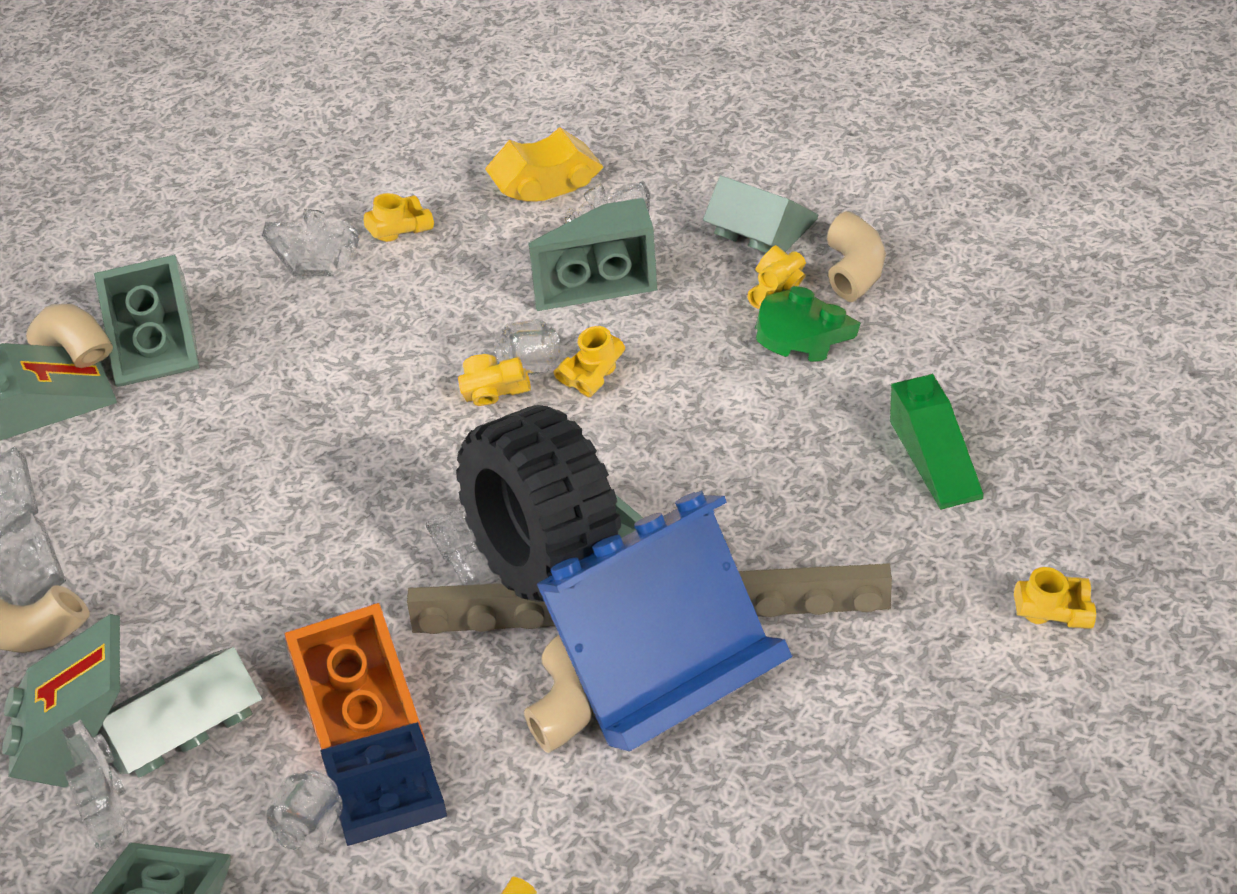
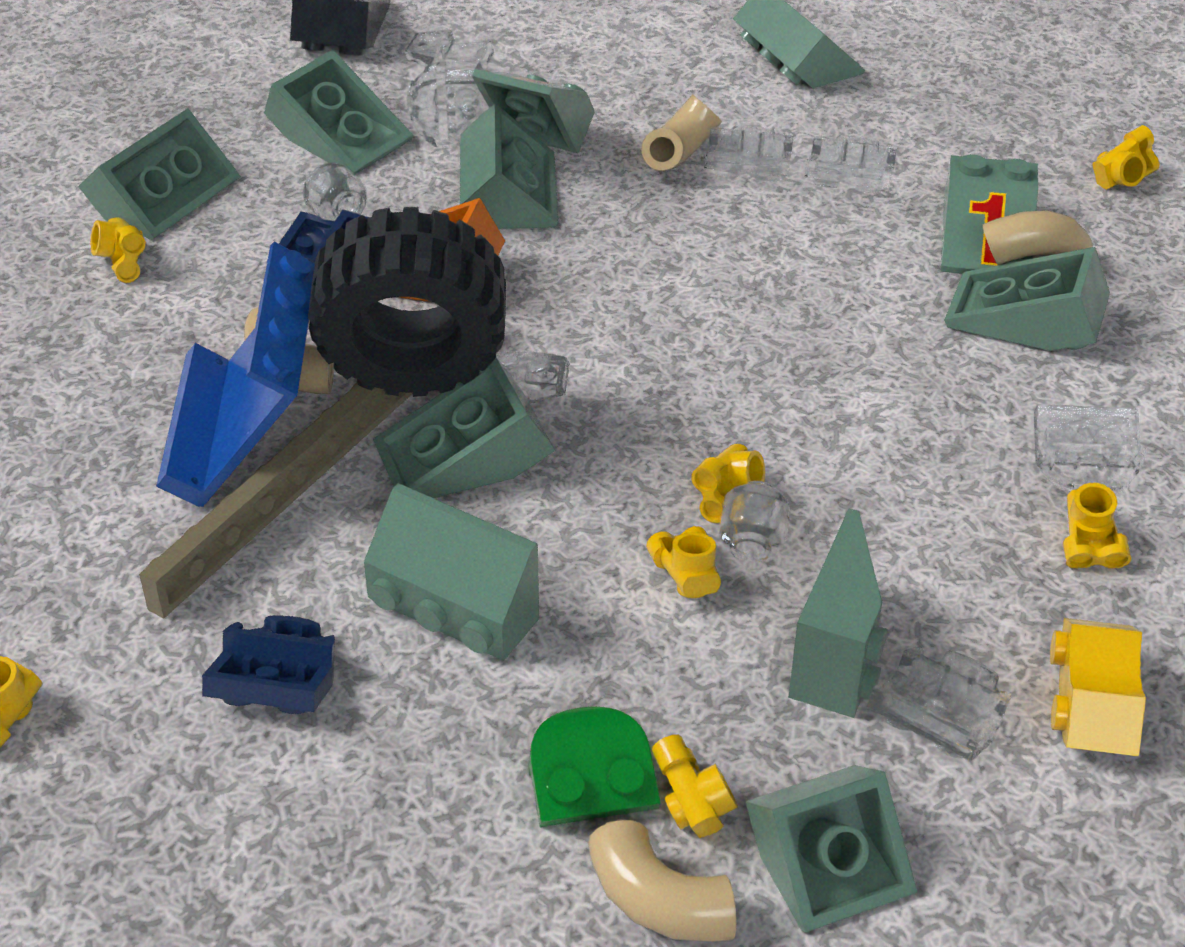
camera: 120 degrees right, 0 degrees up
(731, 437) = (453, 572): none -> sand green slope
(876, 493) = (273, 665): none -> dark blue slope
(934, 440) = (293, 753): green slope -> none

